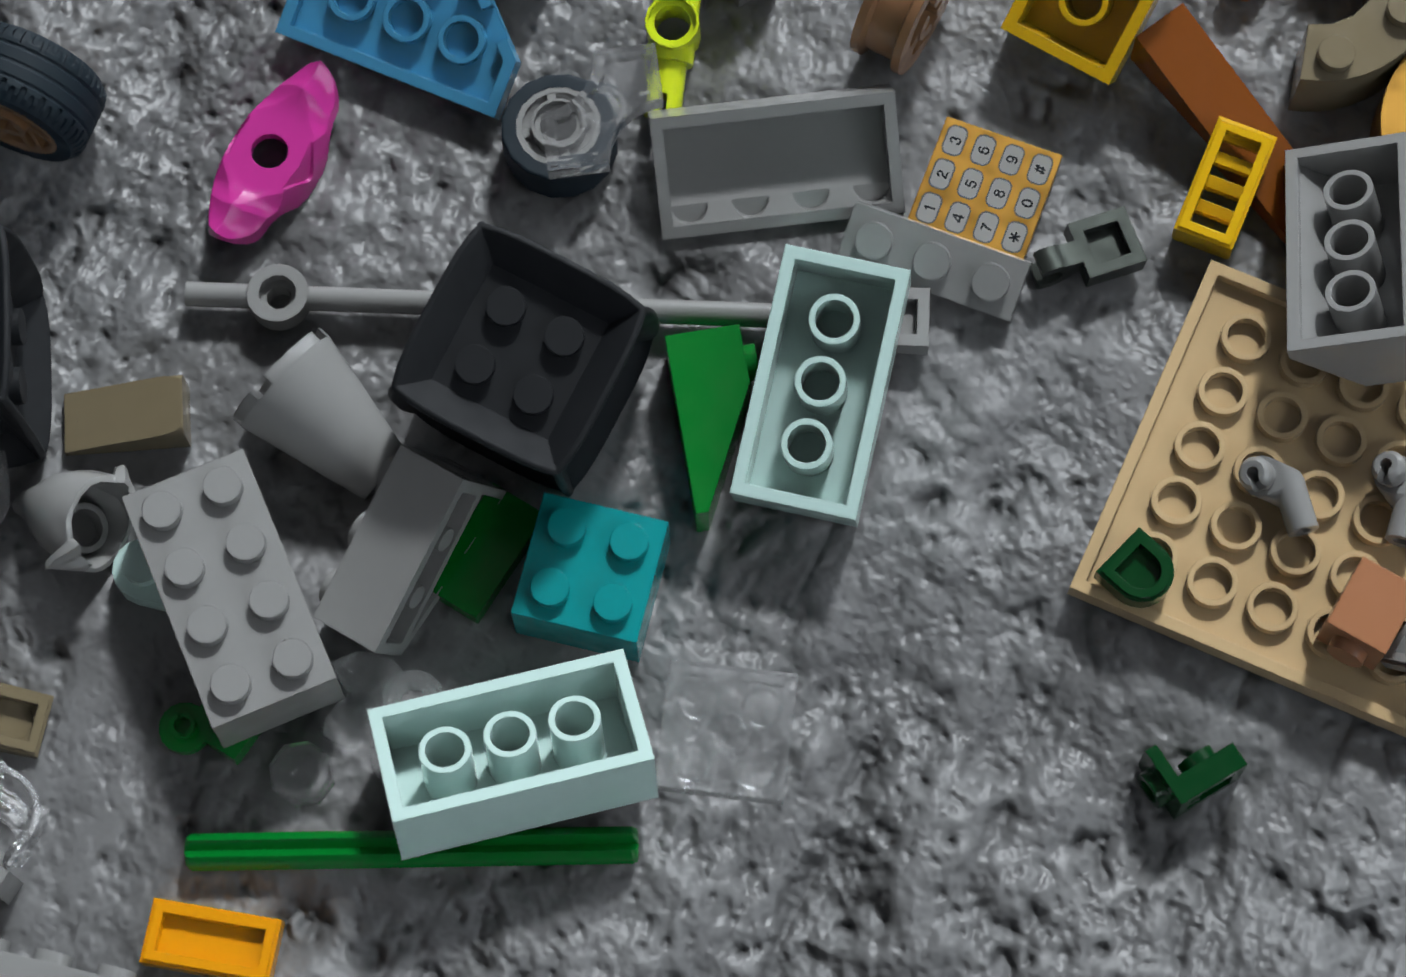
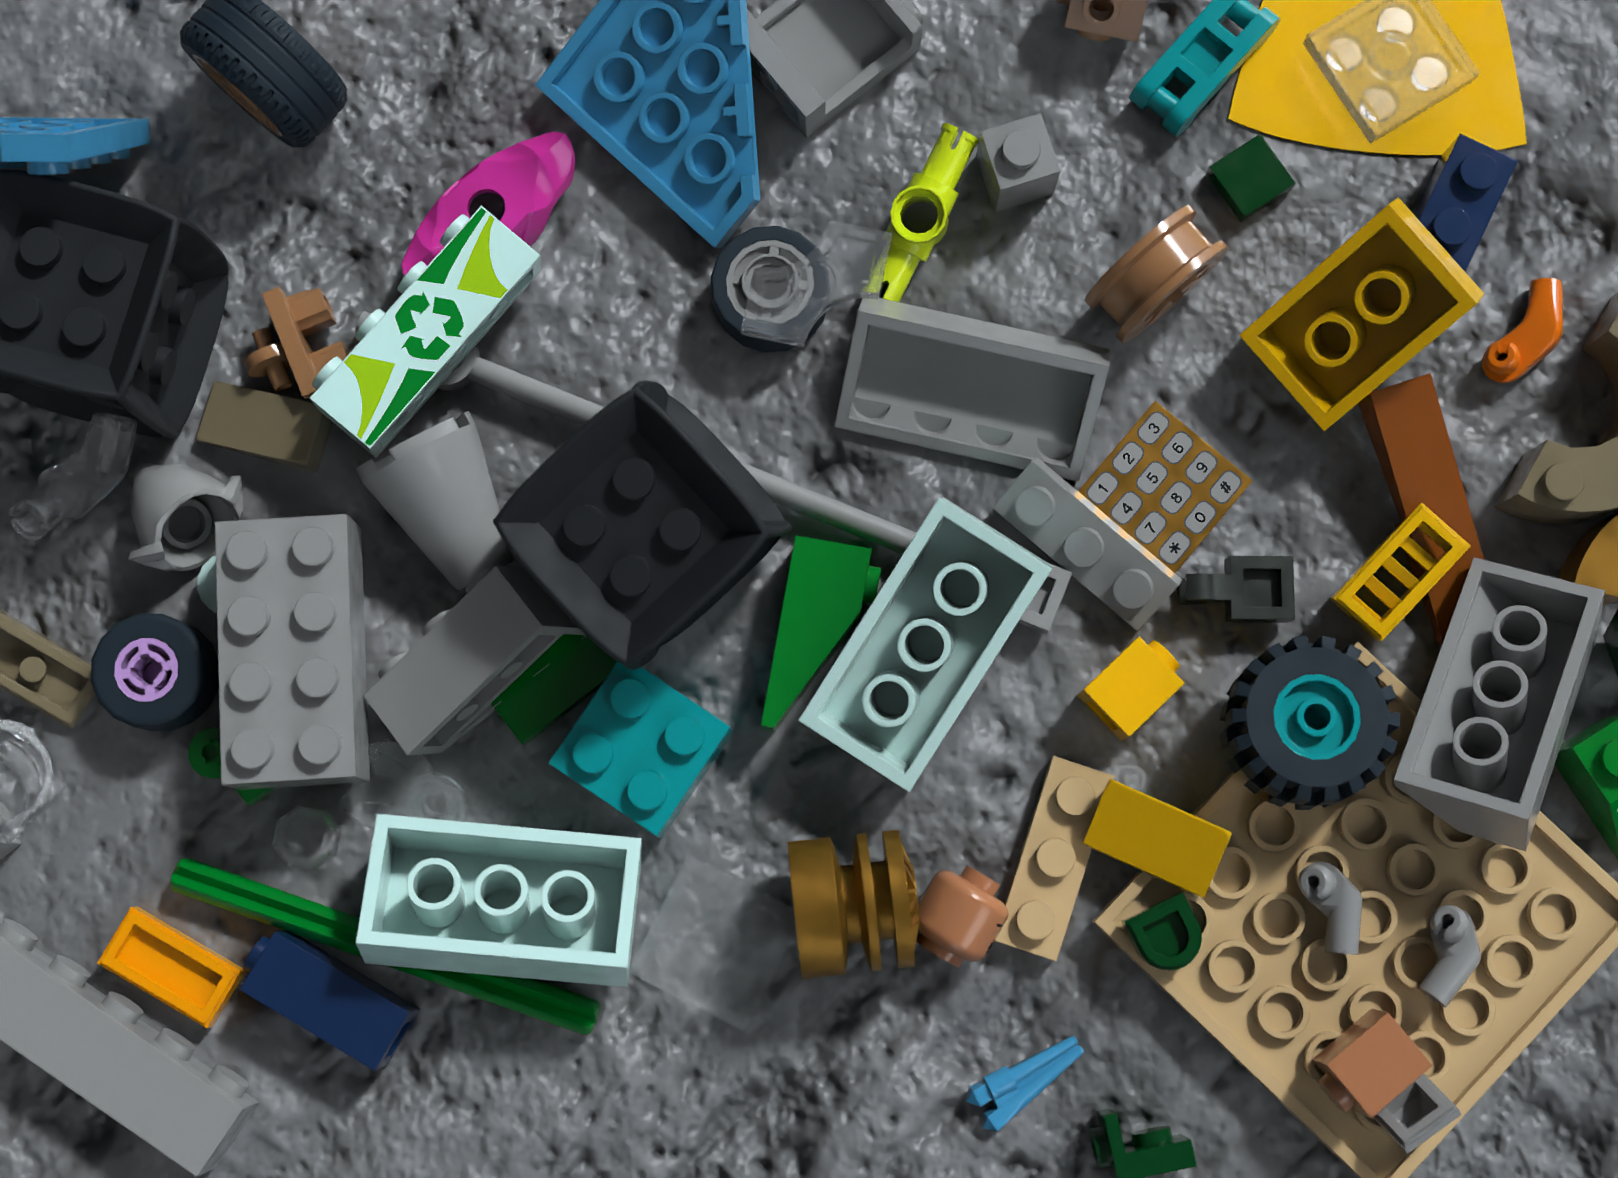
camera: 20 degrees right, 10 degrees up
(117, 691) = (180, 673): none -> black wheel
(124, 310) = (294, 320): none -> medium nougat hips
(256, 270) = (426, 331): none -> light aqua brick
(376, 910) = (328, 998): none -> dark blue brick
(840, 642) = (852, 904): none -> pearl gold wheel
(943, 624) = (960, 916): none -> nougat head
(1010, 550) = (1052, 859): none -> tan plate
(1022, 370) = (1132, 687): none -> yellow brick
(1056, 765) = (1020, 1083): none -> dark azure piece
(1097, 487) = (1157, 838): none -> yellow slope
(1193, 335) = (1309, 723): none -> black wheel

